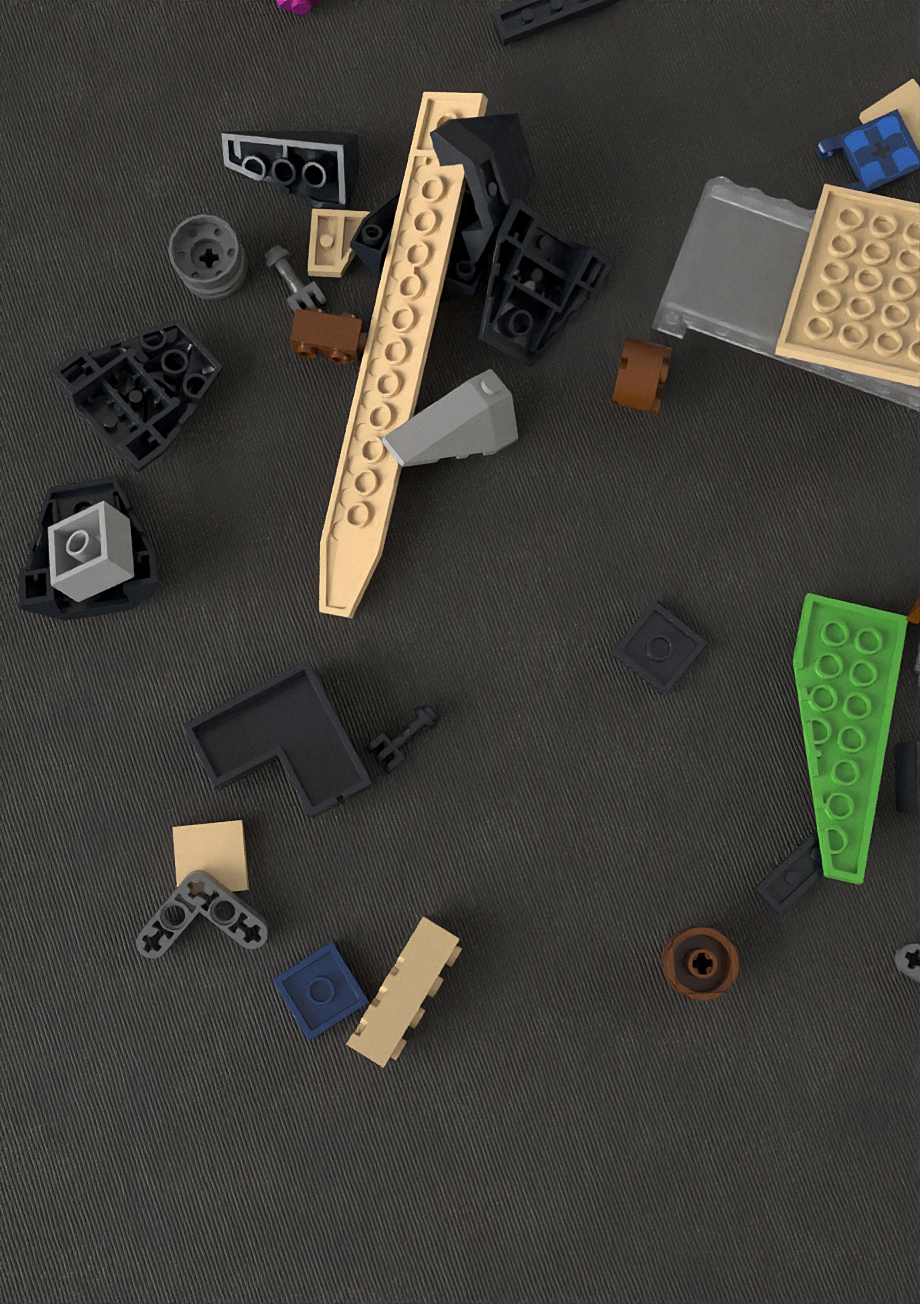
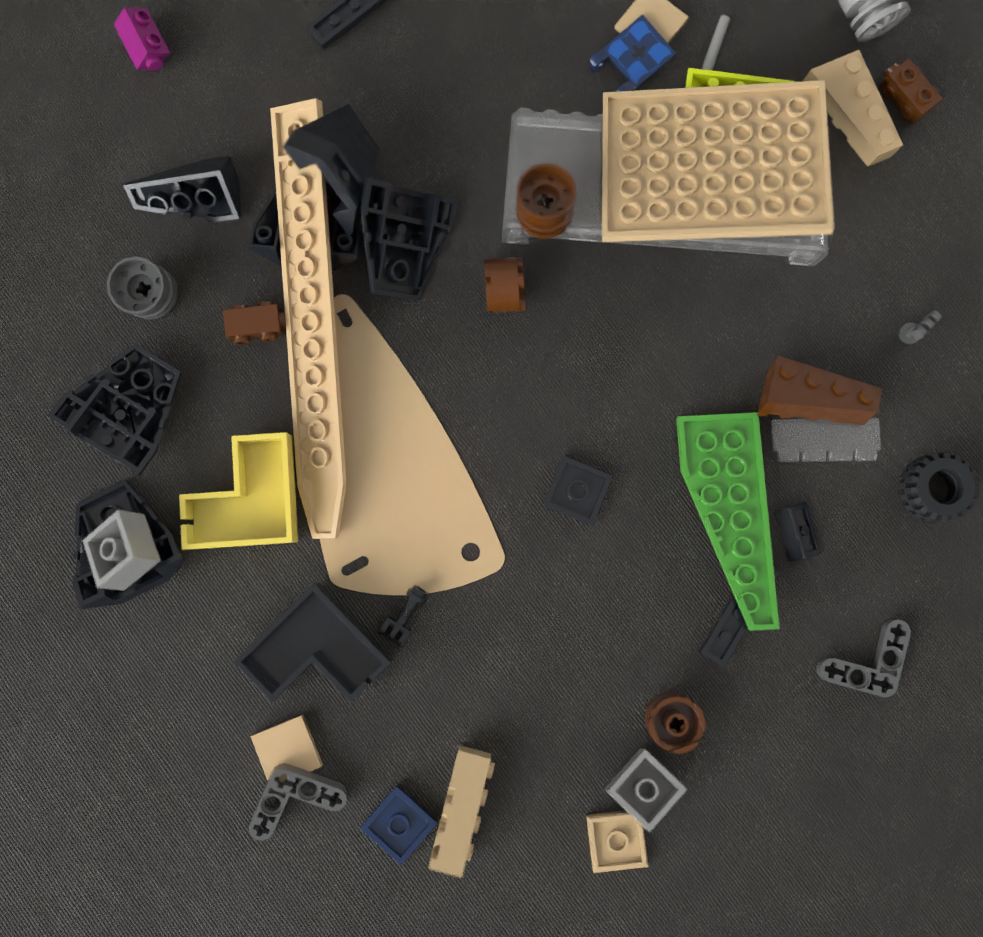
camera: 15 degrees left, 5 degrees up
(267, 554) = (259, 507): none -> light yellow piece
(277, 258) = (197, 272): dark grey hinge -> none
(330, 241) = (233, 246): tan wing -> none
(448, 592) = (406, 486): none -> tan piece
(463, 422) = (379, 362): light grey wedge -> none
(585, 1093) = (616, 842): none -> tan tile
(640, 1034) = (645, 789): none -> light grey brick
(721, 285) = (548, 187): none -> reddish brown wheel

